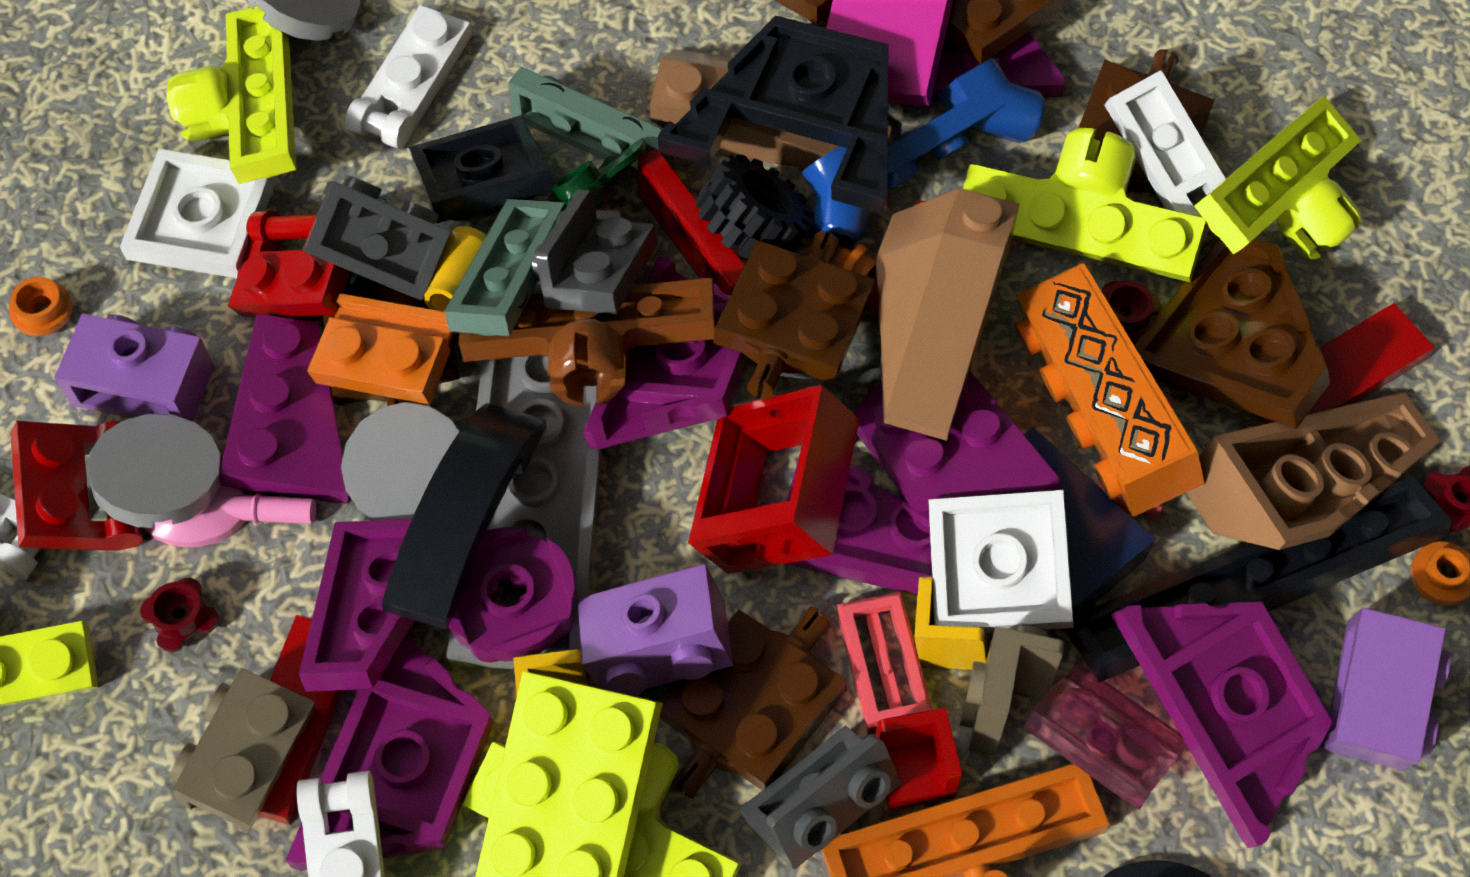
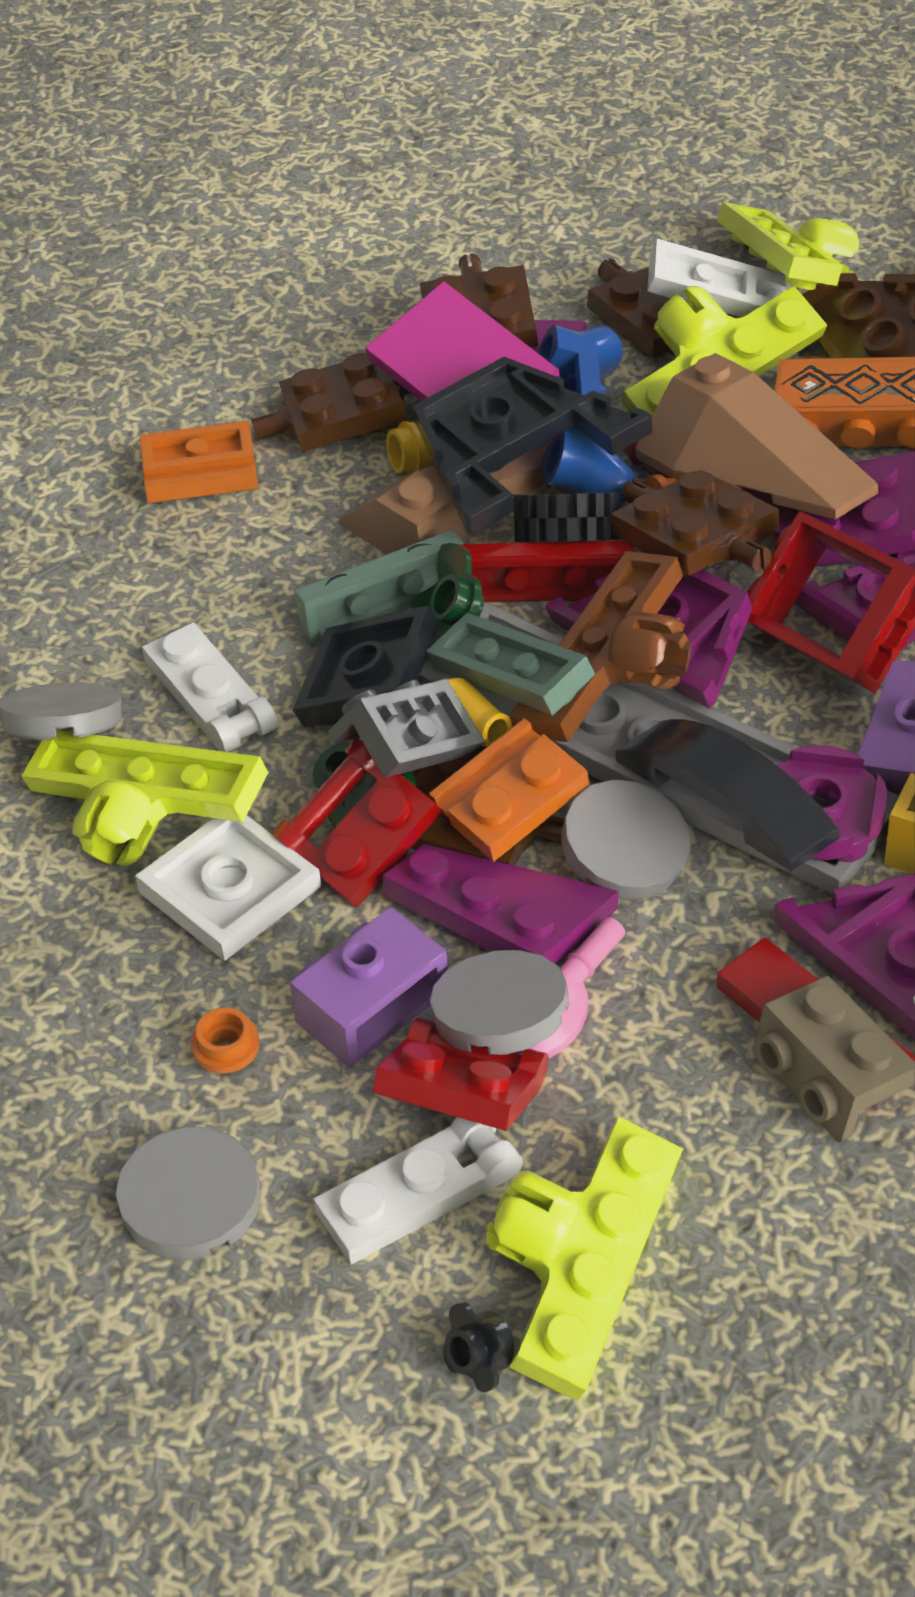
camera: 55 degrees left, 15 degrees down
(169, 599) = (649, 1043): dark red plate -> none
(349, 630) = (747, 901): magenta wing -> none
(590, 260) = (549, 608): dark grey bracket -> none

